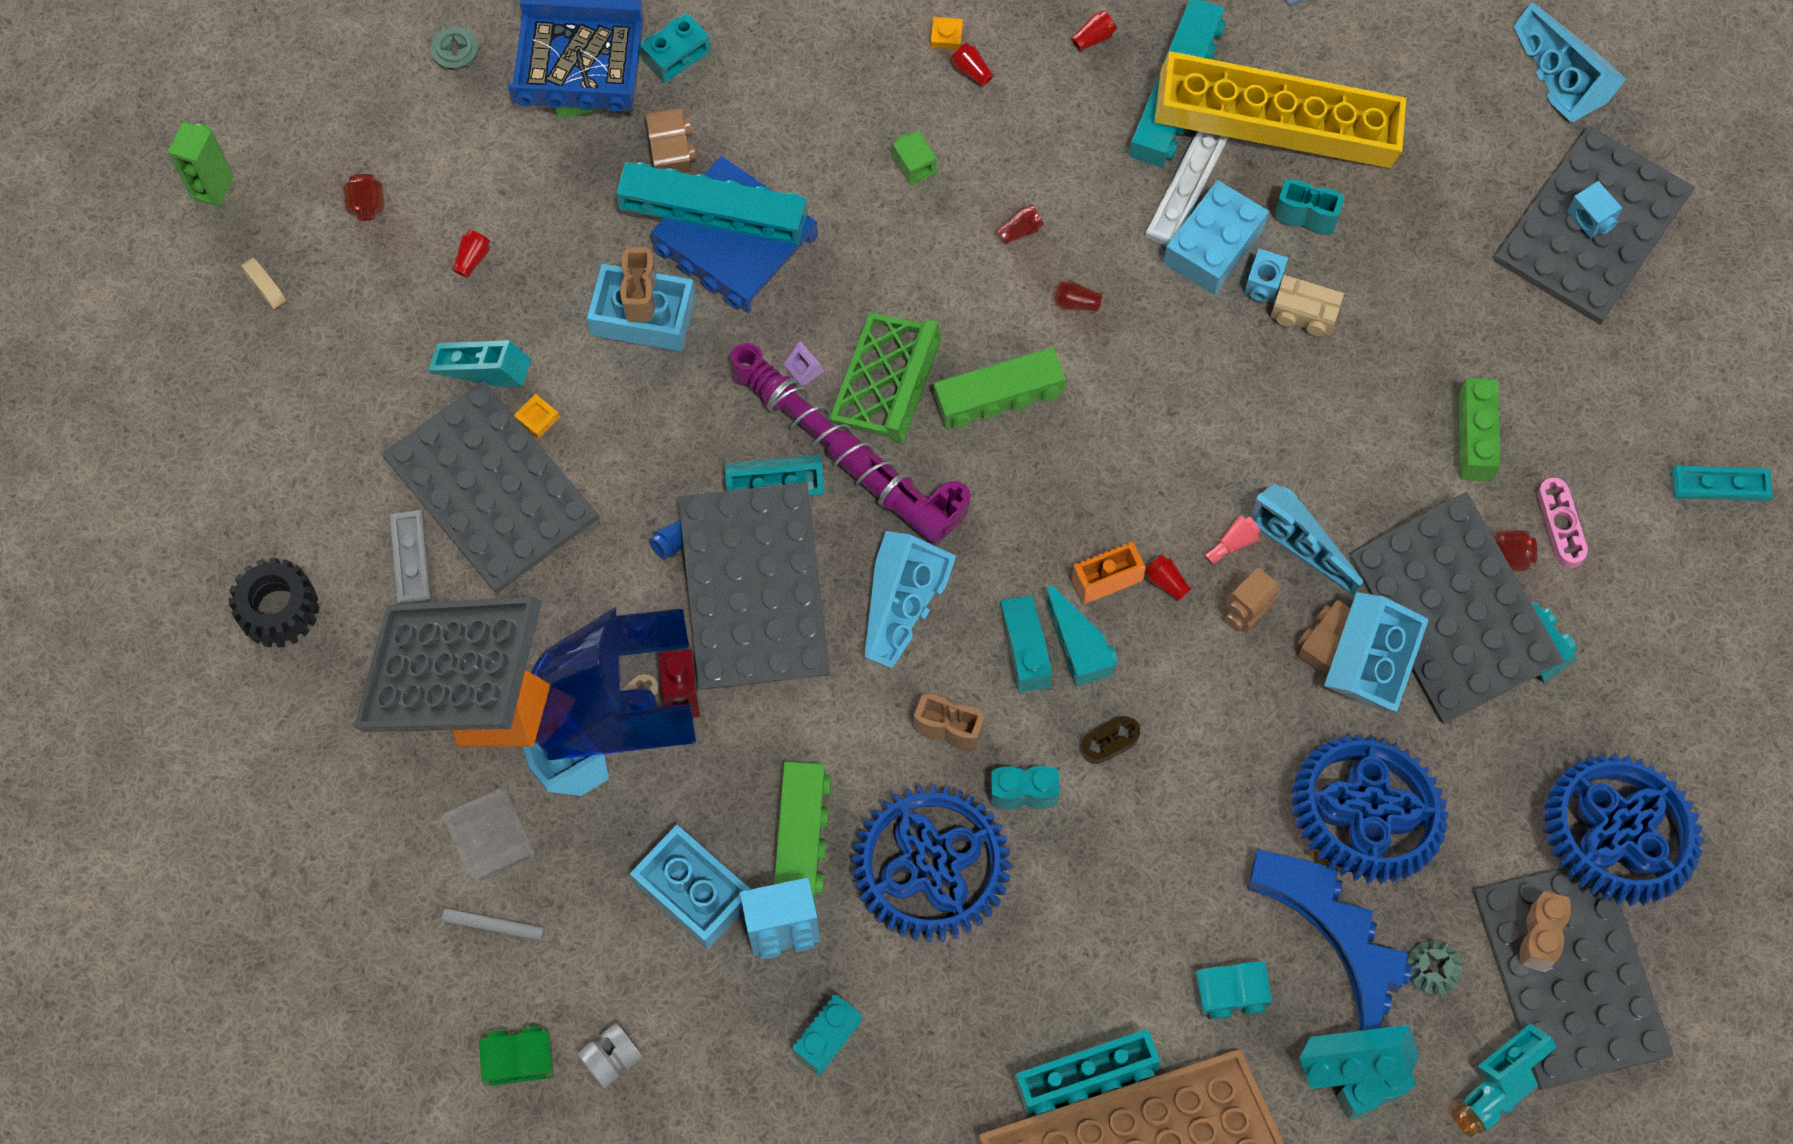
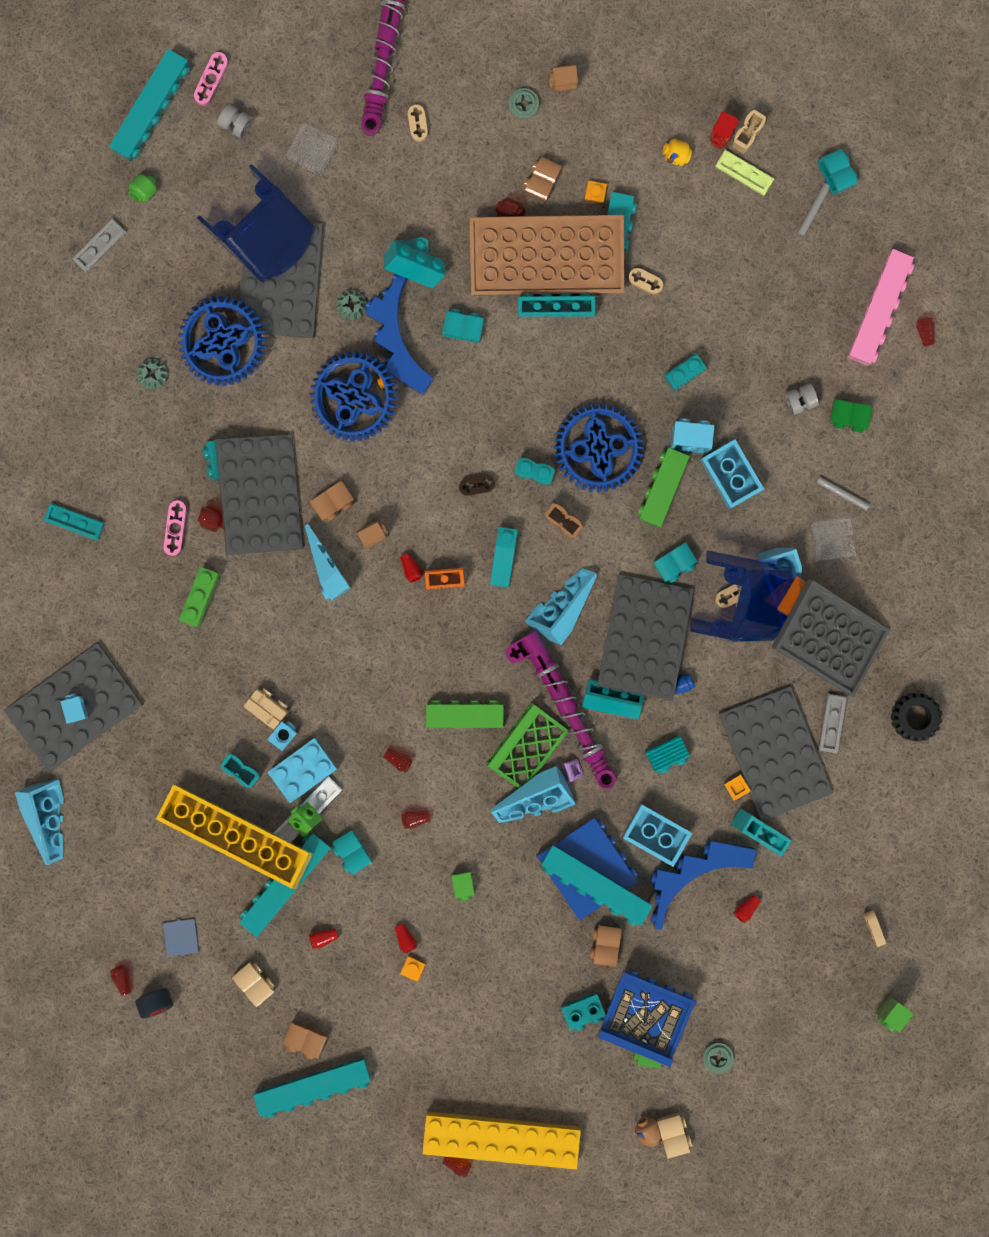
camera: 160 degrees left, 20 degrees up
(363, 196) = (800, 967): clear red head -> none
(538, 308) = (717, 856): none -> blue arch
(638, 284) = (659, 833): medium nougat brick -> none
(662, 428) = (667, 754): none -> teal brick
(679, 679) = (703, 594): dark red torso -> none
(742, 719) = (675, 562): none -> teal brick
(838, 321) = (541, 793): none -> medium azure wedge
(1082, 643) = (473, 543): teal slope -> none
(1096, 152) = (352, 852): none -> teal brick
(1186, 167) = (304, 818): none -> bright green brick
(1241, 534) = (359, 580): coral cone -> none
(1376, 652) = (316, 479): medium azure brick -> none
(1506, 1081) = (340, 231): teal plate -> none
(1545, 935) = (292, 294): medium nougat brick -> none
(1622, 1030) = (269, 236): none -> clear blue windscreen
(1694, 749) = (161, 374): none -> sand green gear

